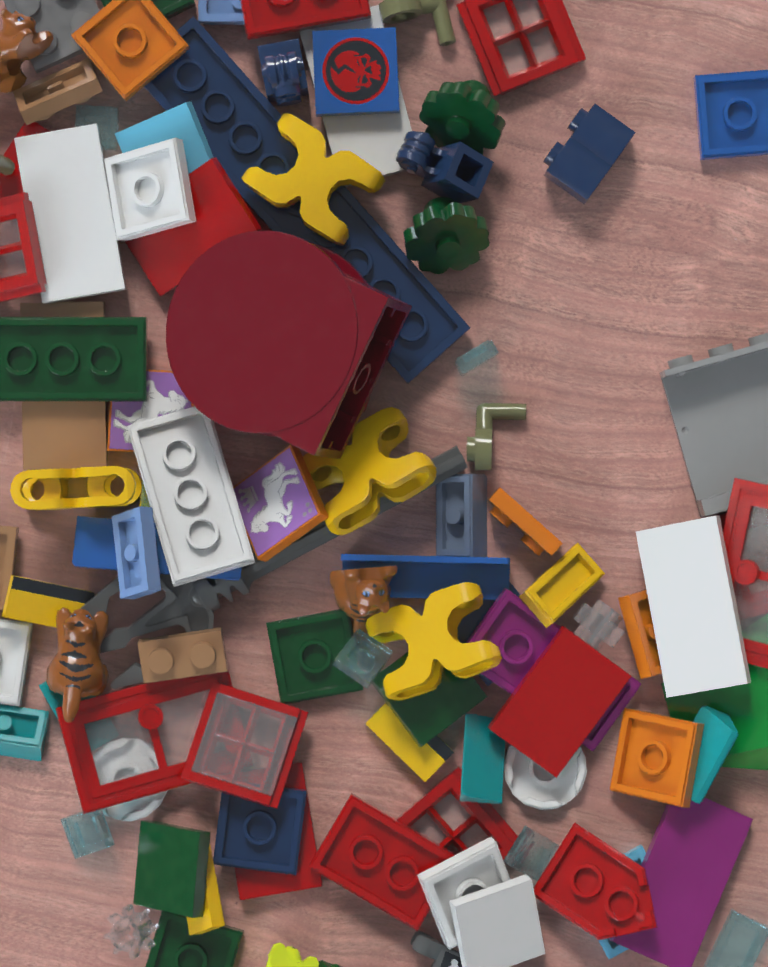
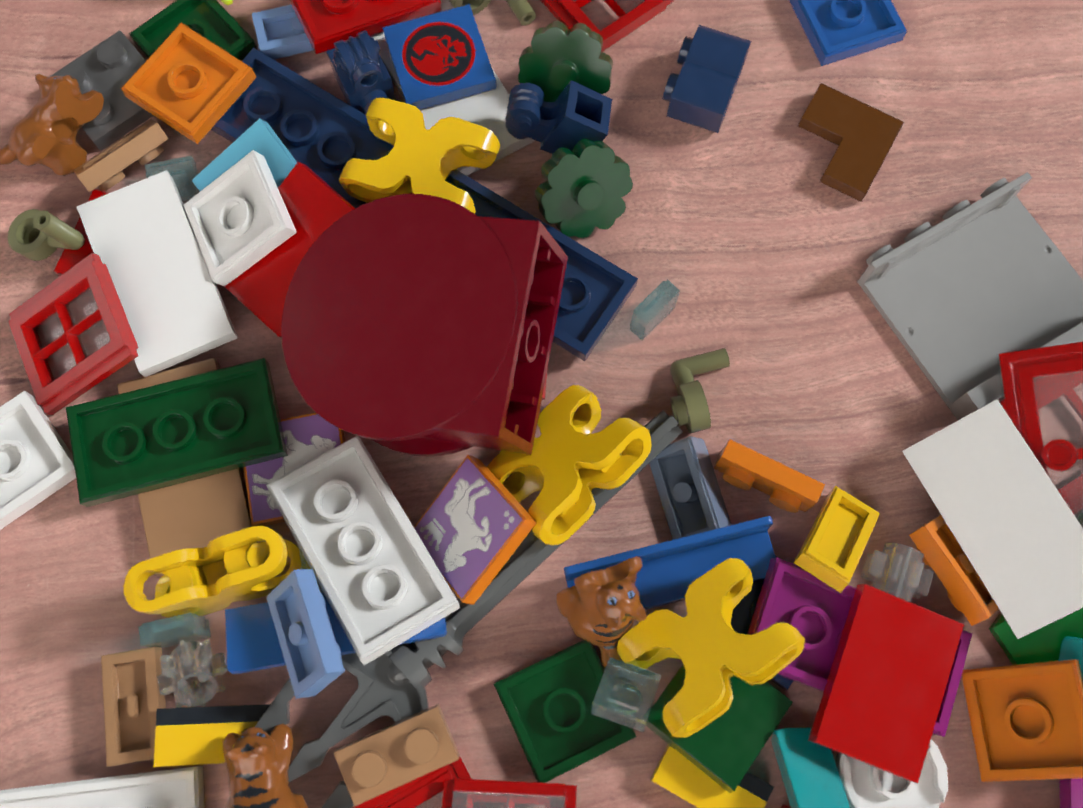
camera: 15 degrees left, 15 degrees down
(33, 518) = (172, 630): none -> clear light blue tile
(41, 555) = (192, 673): none -> clear gear
(709, 239) = (861, 136): none -> reddish brown tile

